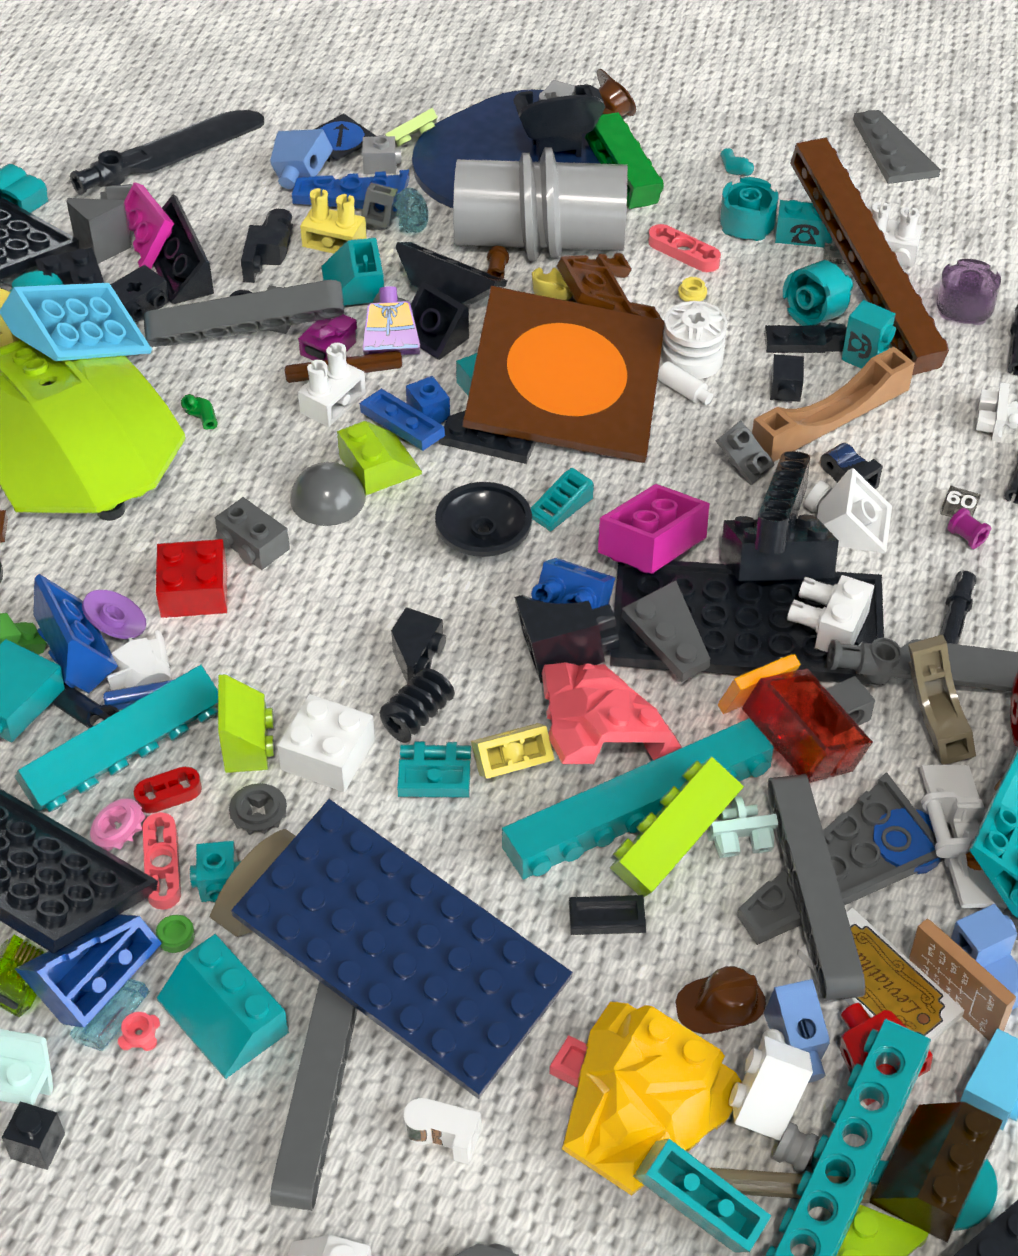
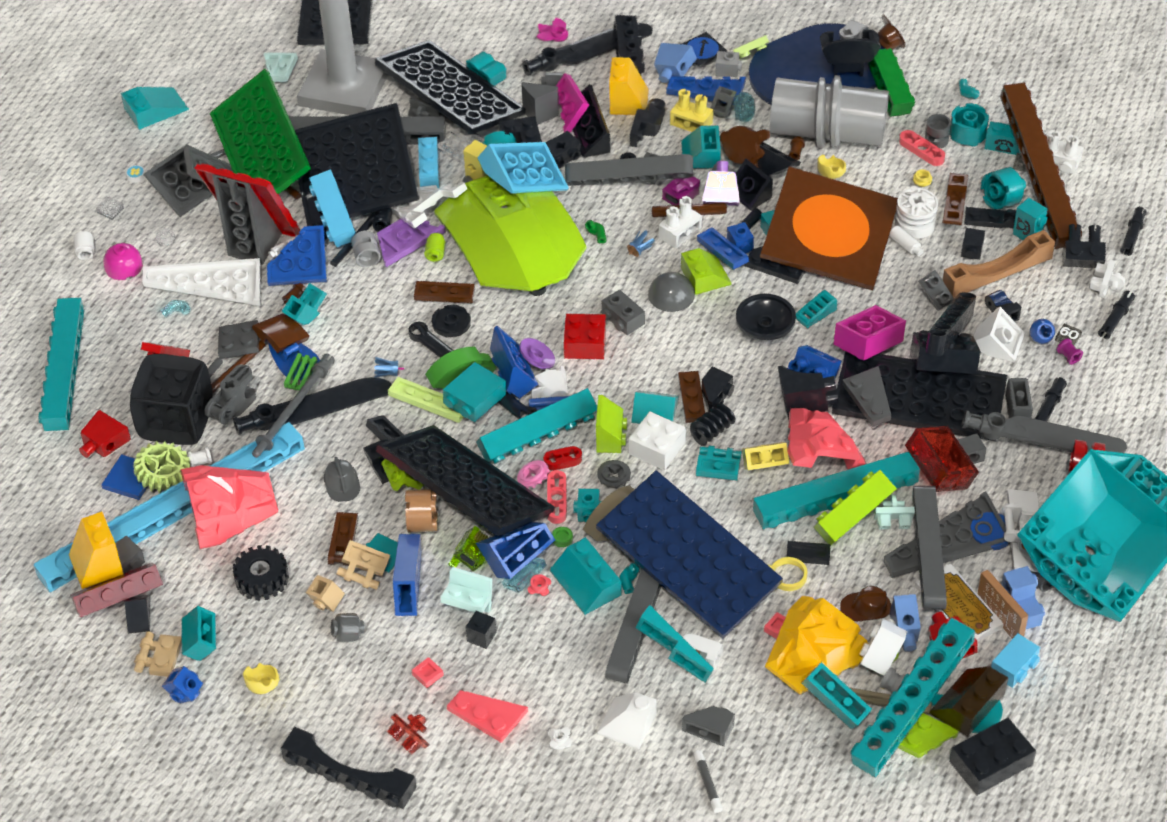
camera: 10 degrees right, 0 degrees up
(121, 131) = (556, 31): none -> dark pink plate
(229, 143) = (628, 41): none -> black brick
(229, 196) = (626, 88): none -> yellow slope
(267, 427) = (637, 246): none -> flat silver piece
(296, 997) = (627, 577): none -> teal arm
(321, 678) = (658, 403): none -> teal slope
(377, 659) = (691, 395): none -> reddish brown plate
(409, 1140) = (682, 653): none -> teal slope
(416, 259) = (743, 143): none -> reddish brown tile
(444, 368) = (752, 217): none -> black piece
(586, 934) = (790, 560): none -> light yellow piece
(594, 283) = (858, 171): reddish brown wing -> none
(705, 219) = (938, 130): none -> dark grey wheel
(744, 684) = (907, 430): light orange tile -> none
(747, 315) = (955, 199): none -> reddish brown slope
(817, 495) = (976, 321): white tile -> none
(845, 610) = (978, 393): white brick -> none
(892, 150) = (1077, 88): dark grey wing -> none
(908, 611) = (1018, 398): none -> dark grey brick
(921, 500) = (1042, 331): none -> blue piece
(939, 701) = (1025, 452): dark tan arch -> none
(957, 377) = (1084, 253): none -> black brick
(968, 292) = (1104, 196): clear purple brick -> none

